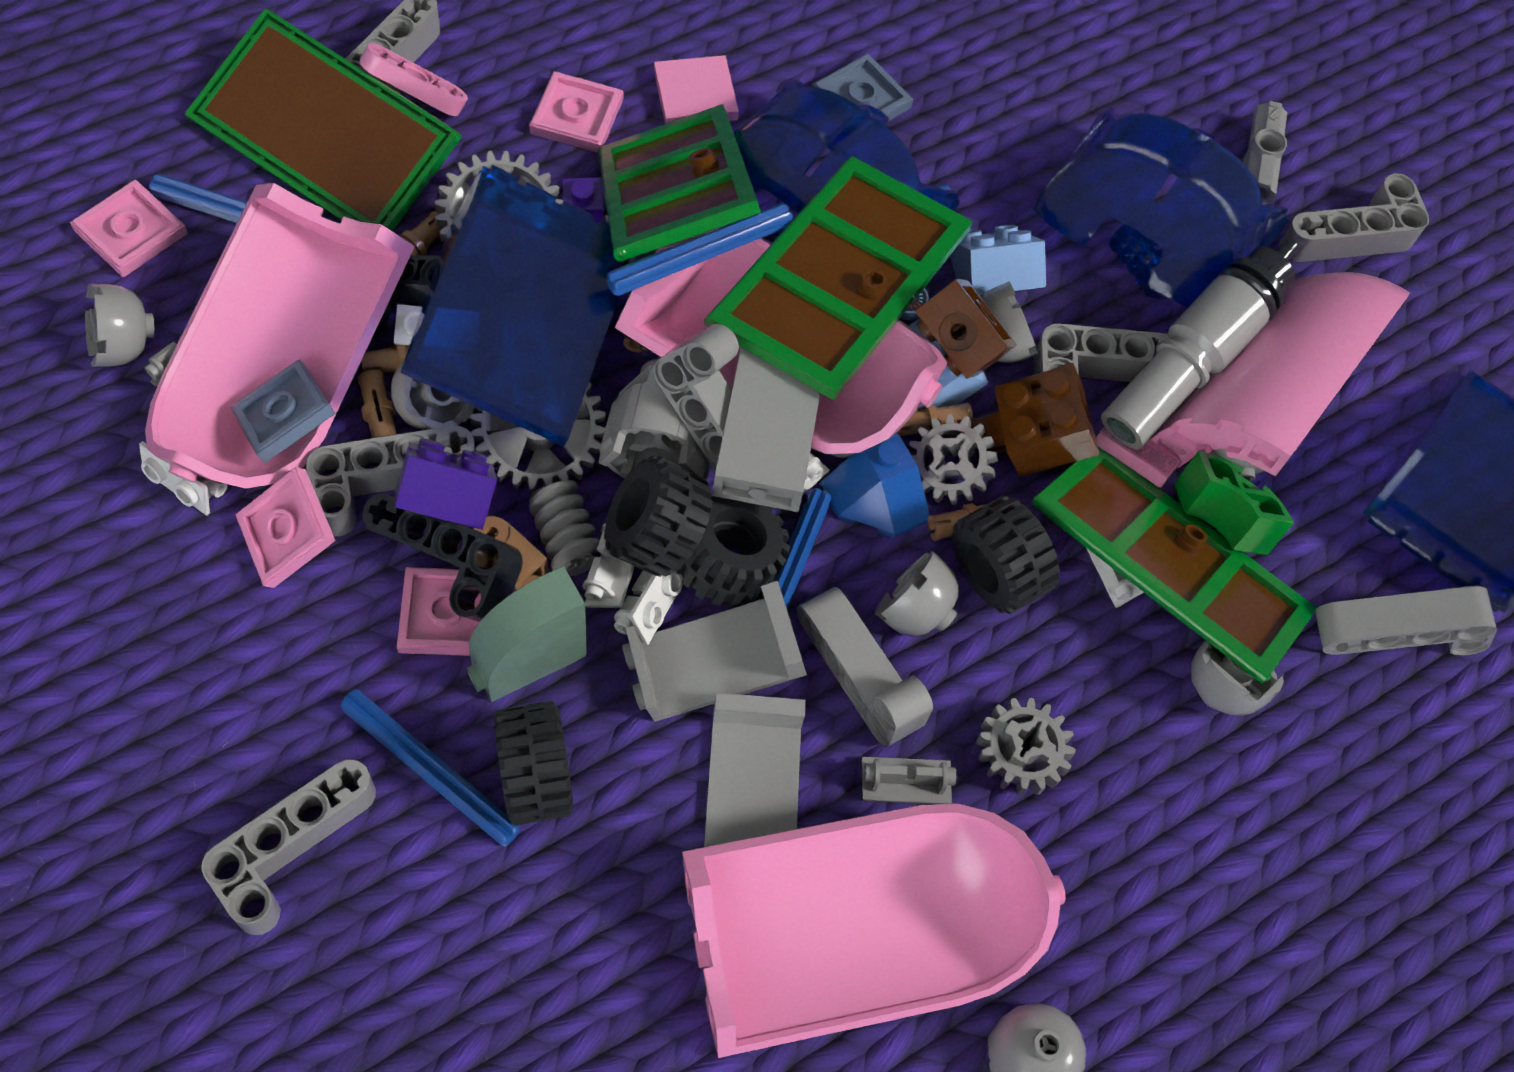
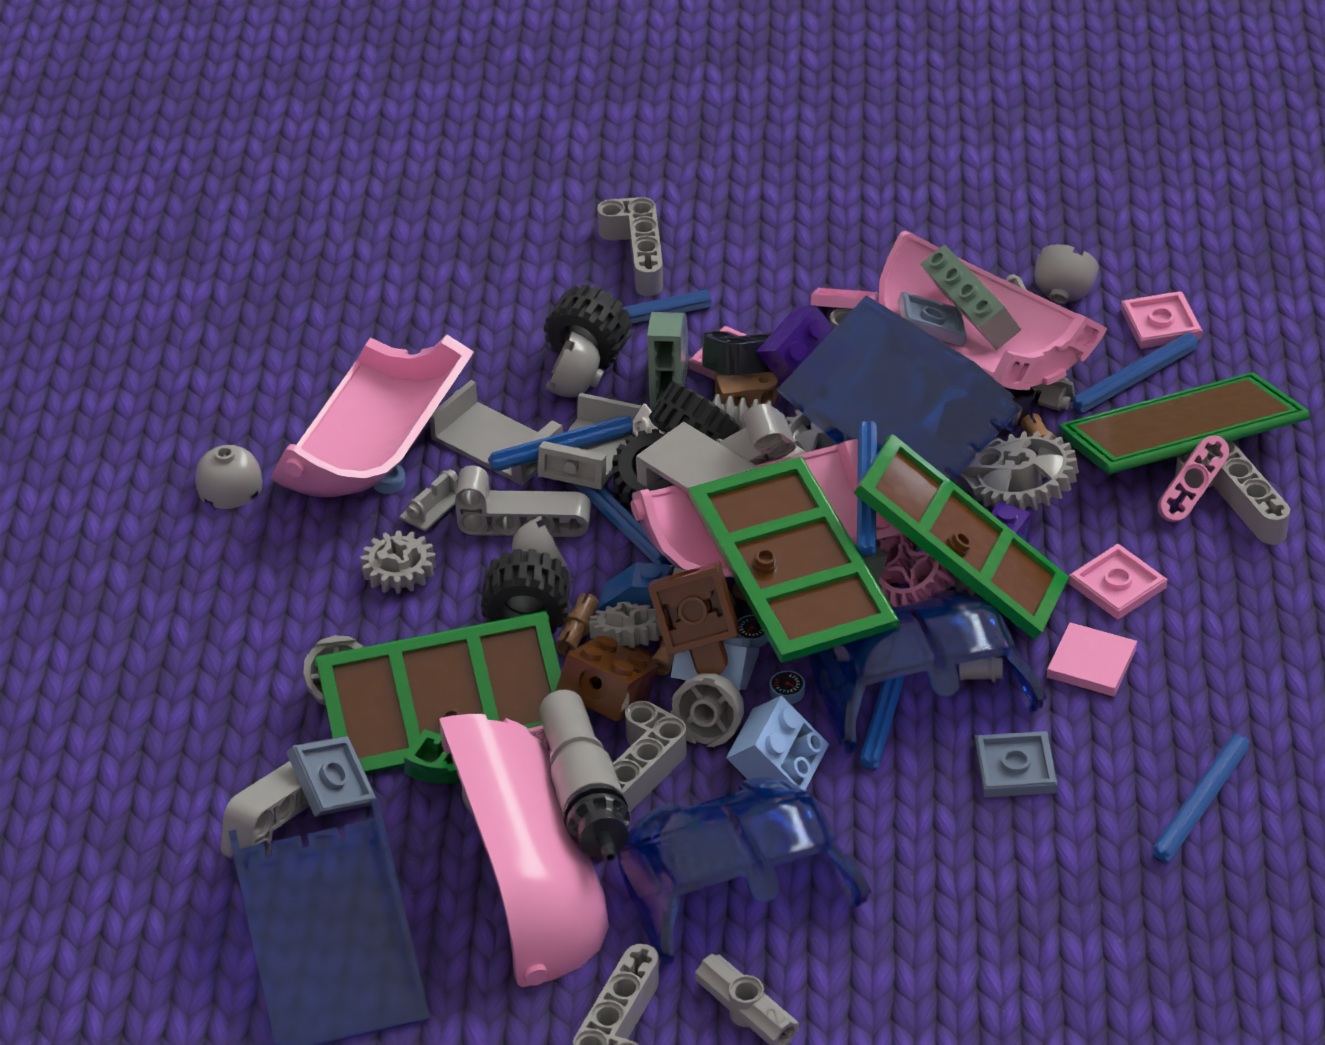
camera: 135 degrees right, 20 degrees down
(239, 368) = (970, 297): none -> sand green brick
(606, 750) = (575, 368): none -> light grey cylinder
(749, 673) = (575, 438): none -> blue axle
(1353, 588) = (331, 776): none -> sand blue tile

